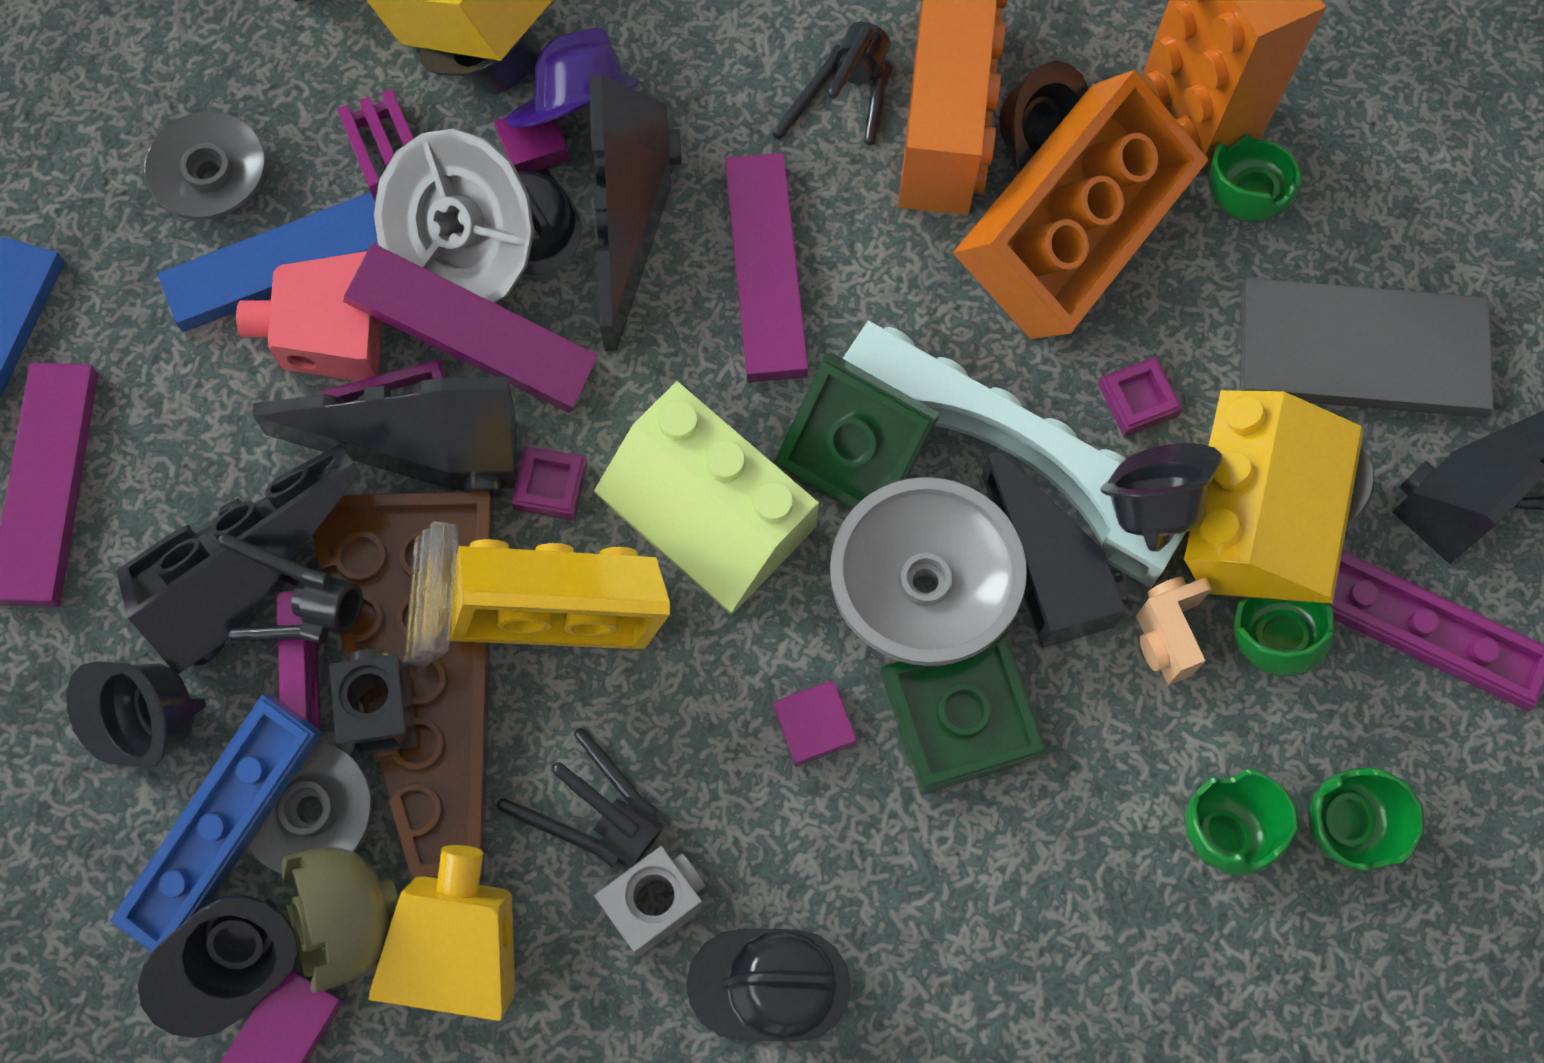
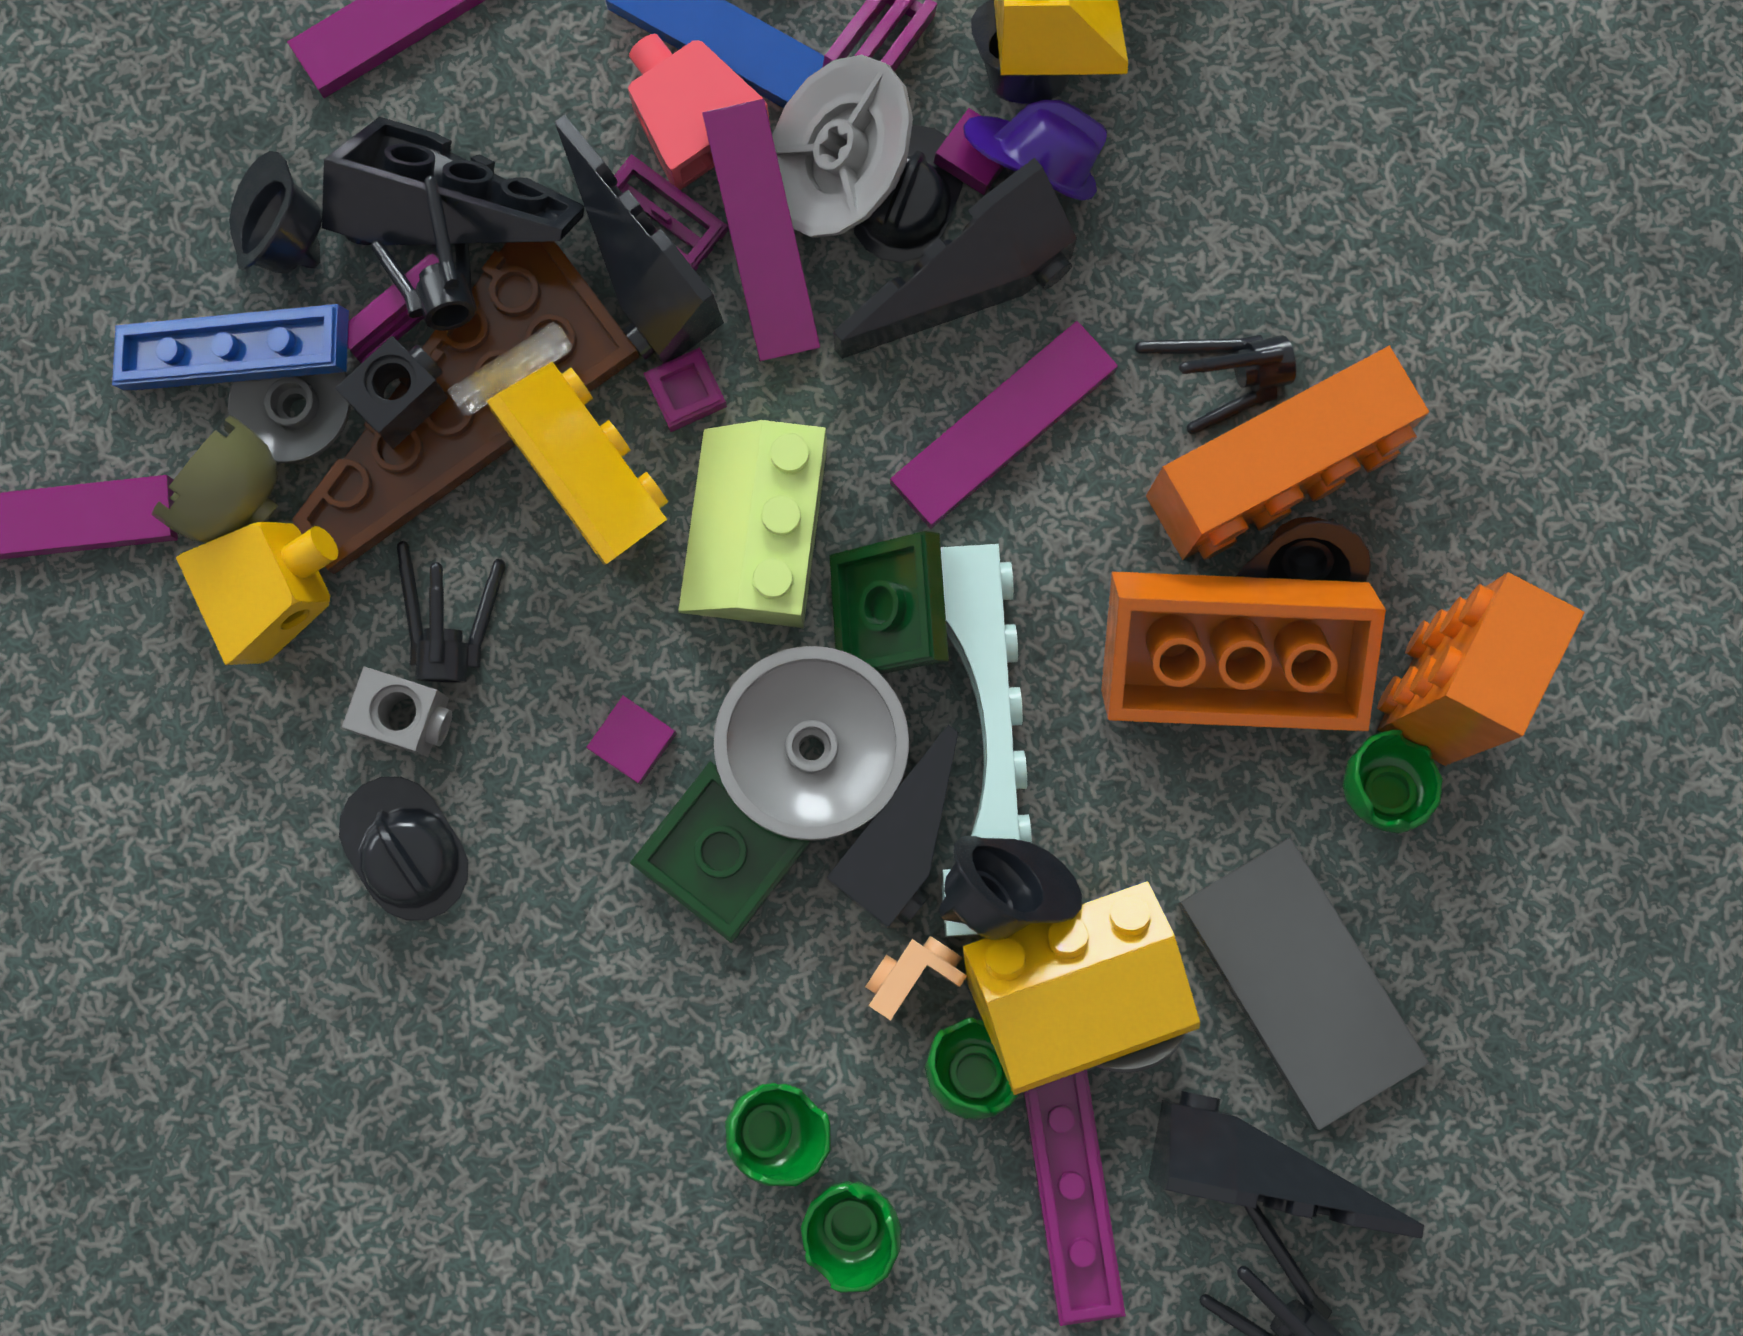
camera: 55 degrees right, 10 degrees up
(217, 966) = (130, 428): black piece -> none
(1140, 396) = (1112, 817): magenta tile -> none

